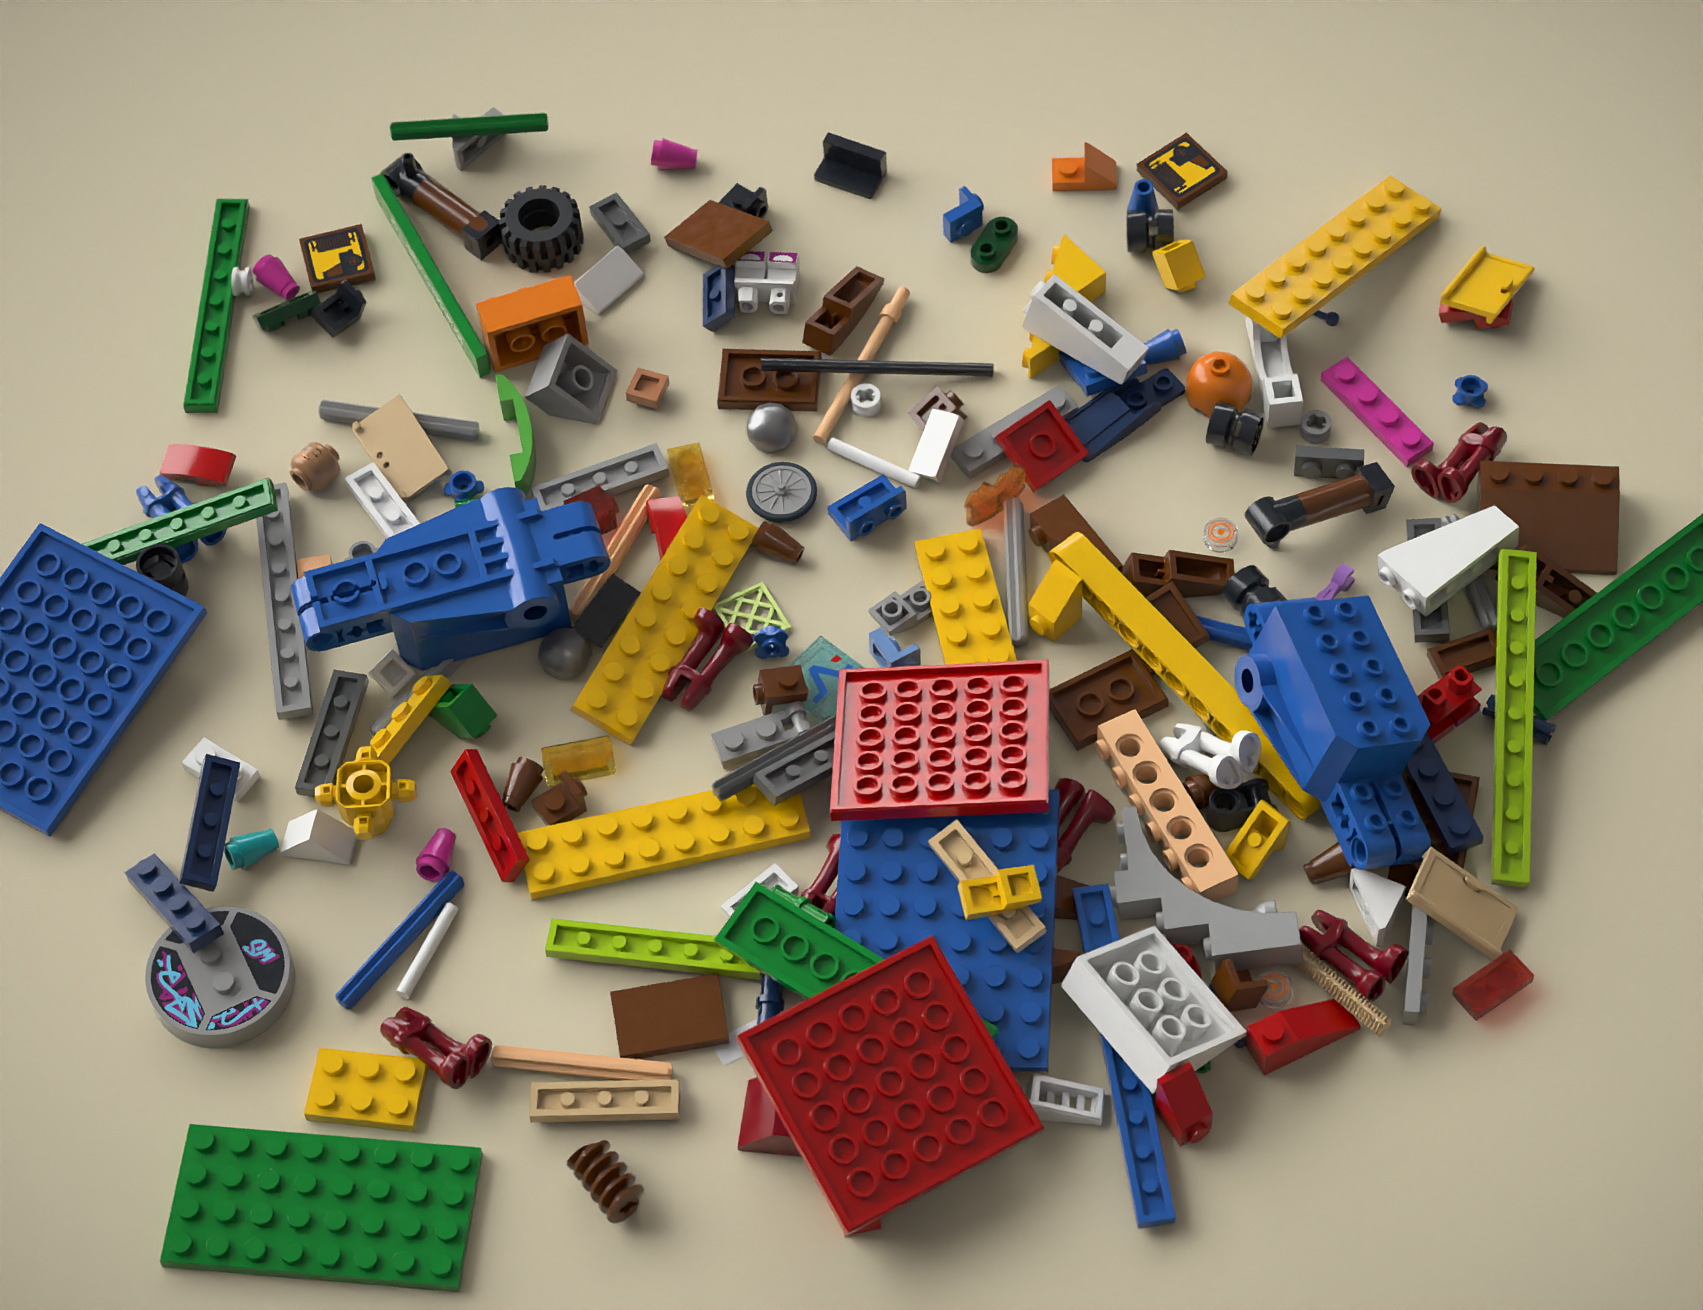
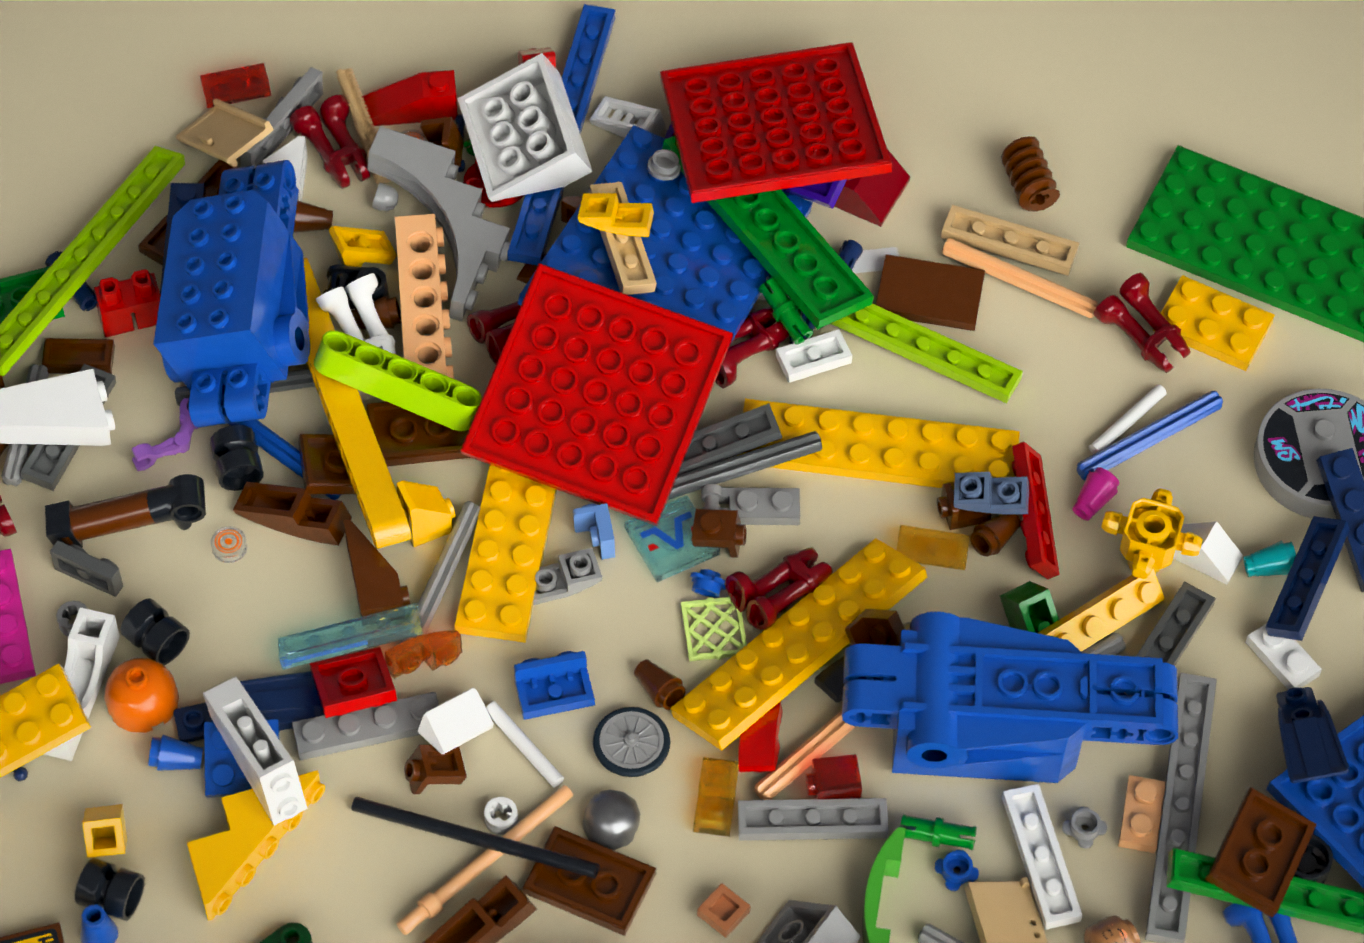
camera: 165 degrees left, 0 degrees up
(179, 669) = (1308, 737): none -> dark blue piece
(197, 536) = (1261, 852): none -> reddish brown tile
(541, 793) = (991, 495): none -> sand blue slope
(593, 628) = (875, 627): none -> reddish brown bracket
(989, 1004) = (664, 165): none -> light grey plate
(1068, 479) = (350, 636): none -> clear light blue tile
(1153, 694) = (397, 380): none -> lime beam

